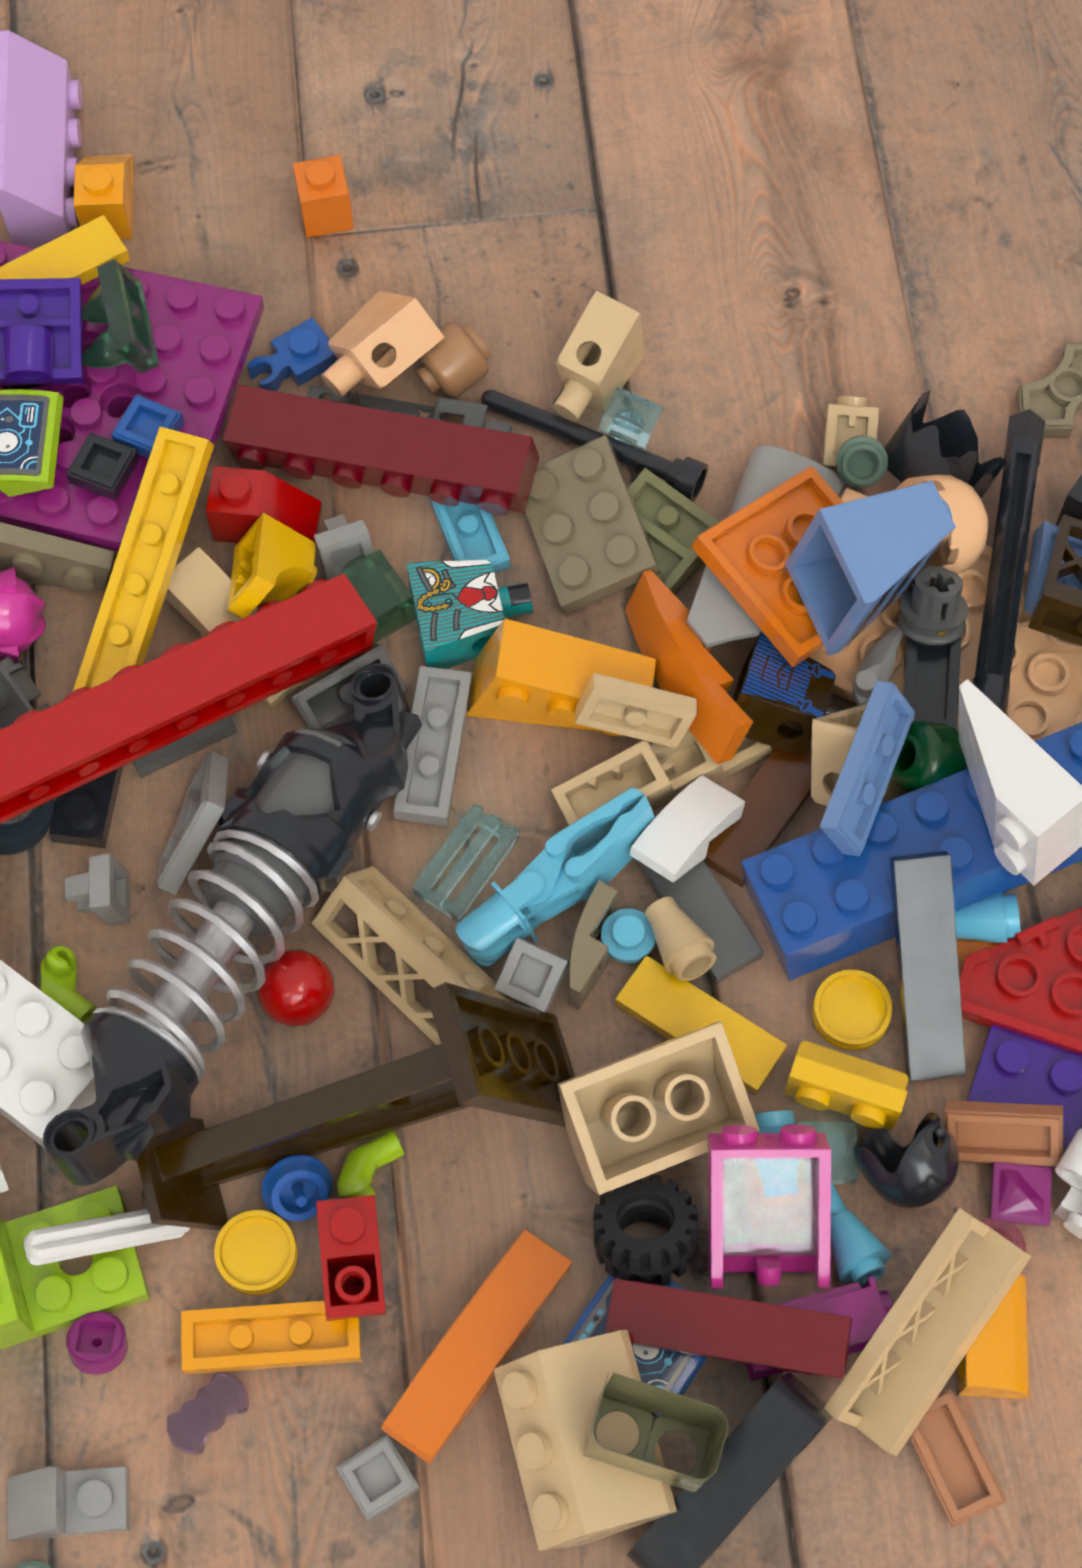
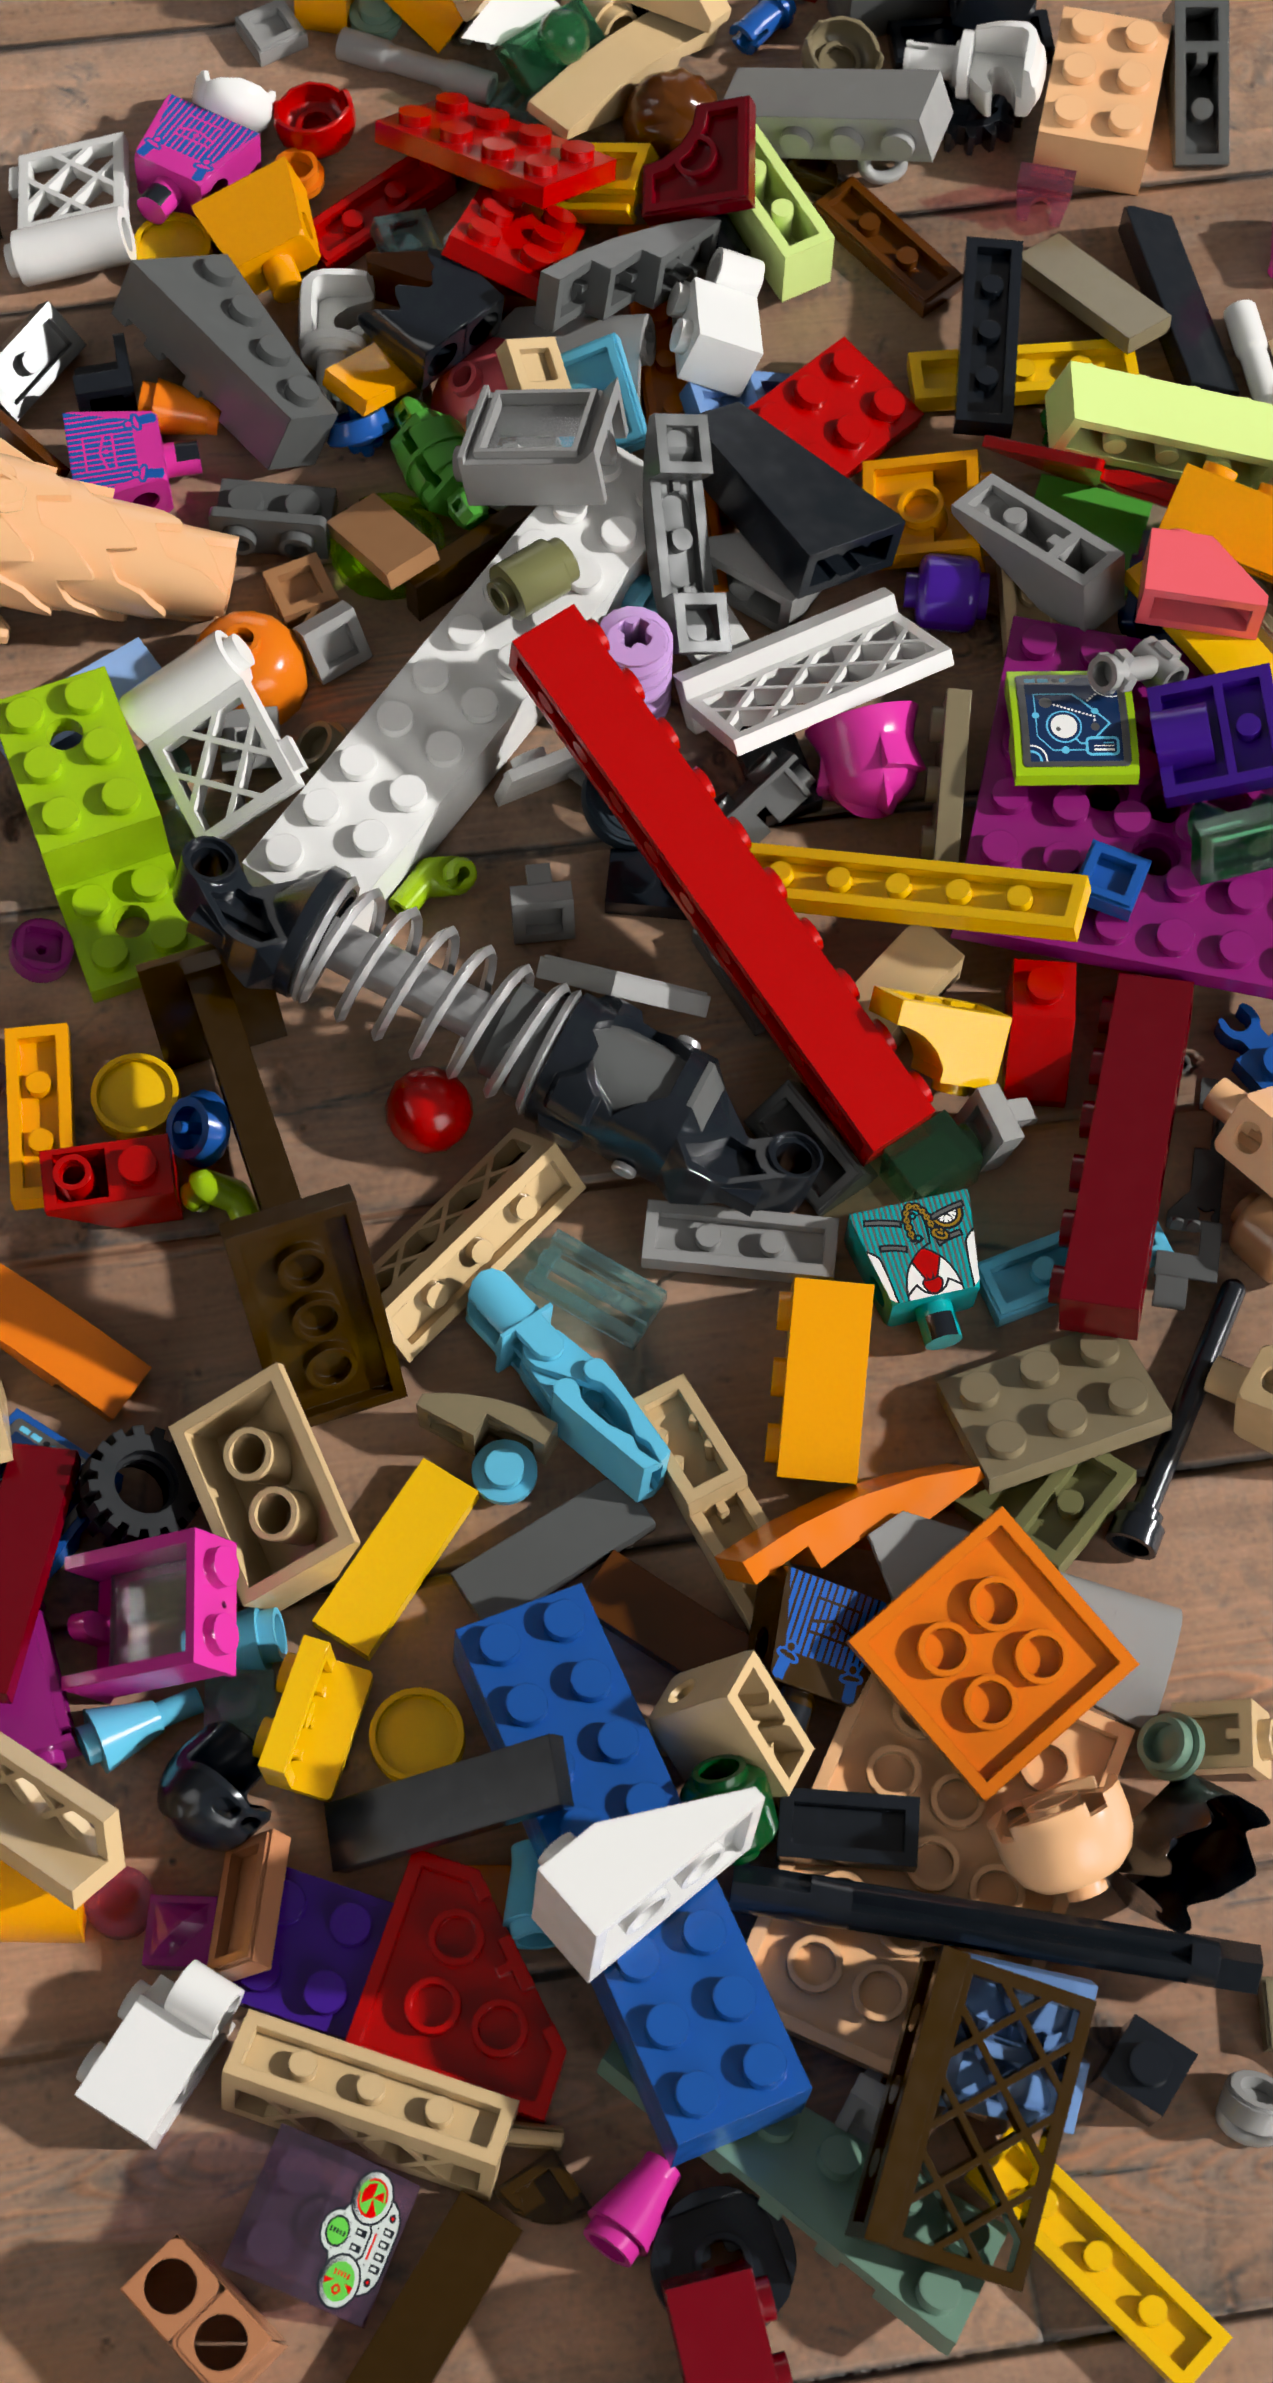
camera: 85 degrees right, 0 degrees up
(96, 1237) = (131, 906): white axle -> none
(103, 466) = (1053, 837): black tile -> none
(532, 975) = (443, 1357): light grey tile -> none
(630, 418) = (1216, 1456): clear light blue plate -> none
(635, 710) = (773, 1424): tan plate -> none
(681, 942) = (490, 1521): tan cone -> none
(684, 828) = (633, 1523): white slope -> none
(866, 557) = (979, 1718): medium blue slope -> none
(867, 769) = (683, 1712): medium blue tile -> none
(877, 665) = (865, 1759): light grey bar -> none
(935, 610) = (946, 1846): dark grey piece -> none

